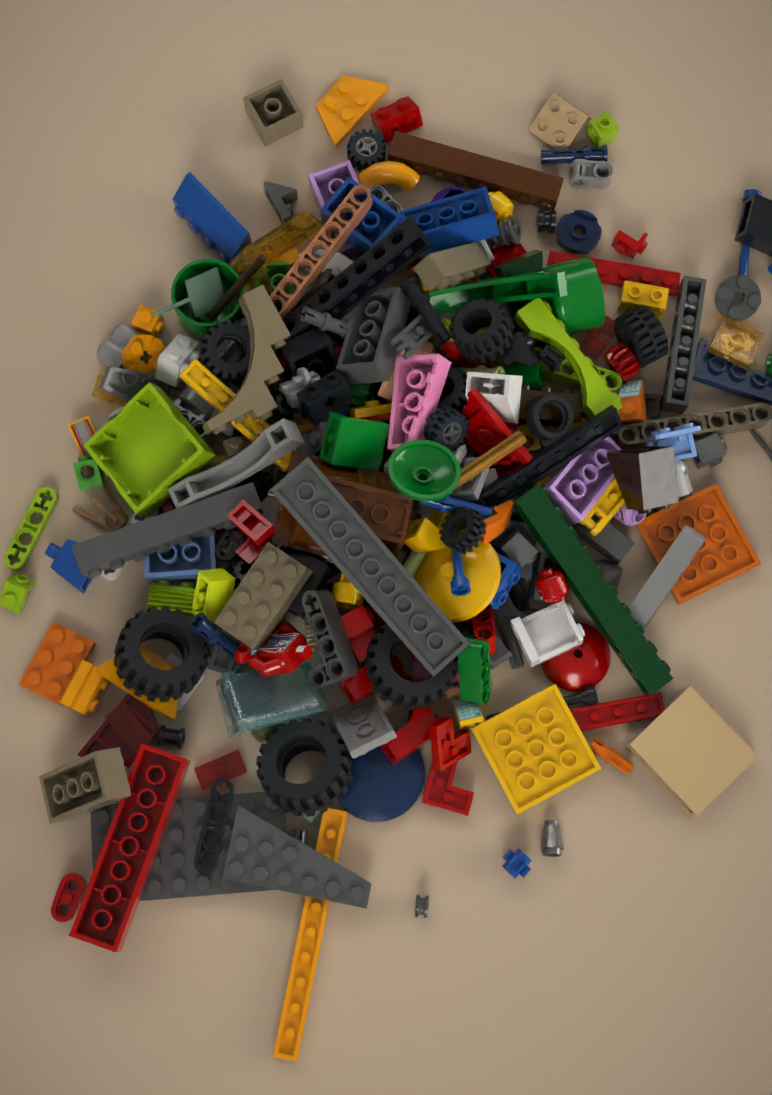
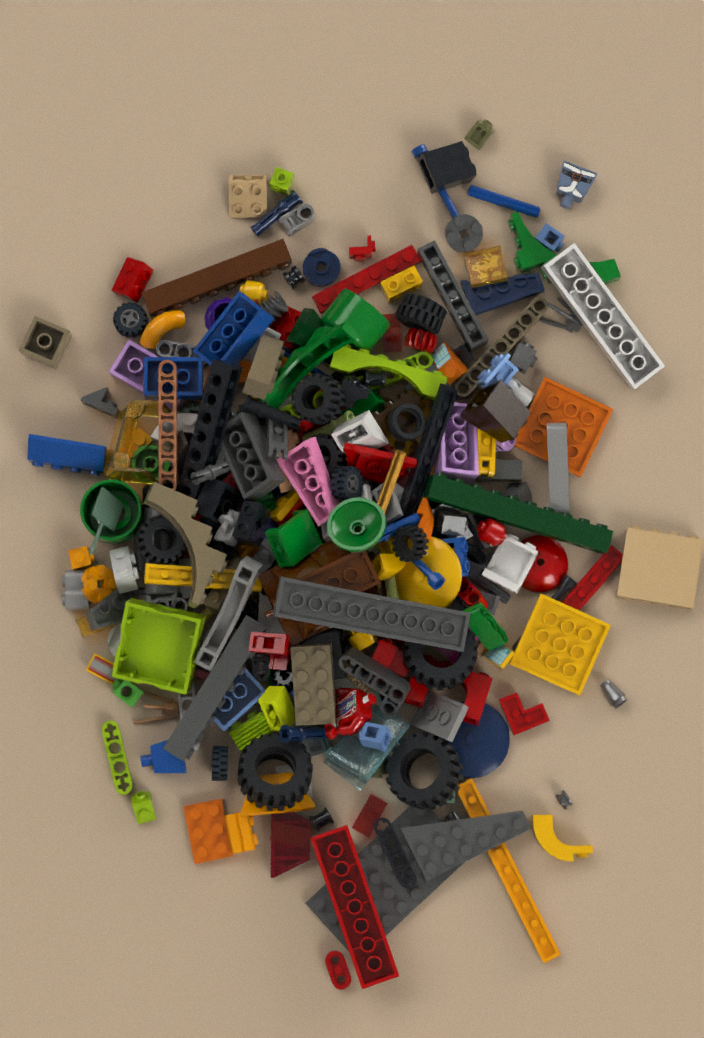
camera: 35 degrees left, 5 degrees up
(85, 785) = (295, 892): dark tan brick -> none
(118, 606) = (219, 763): none -> black wheel
(236, 287) = (129, 491): dark brown bar -> none
(281, 693) = (375, 736): none -> medium blue brick
(347, 105) = (89, 295): light orange wing -> none
(374, 931) = (545, 836): none -> yellow arch
(446, 745) = (502, 686): red plate -> none
(516, 863) = (603, 726): blue gear -> none
(610, 756) = (611, 611): orange axle -> none

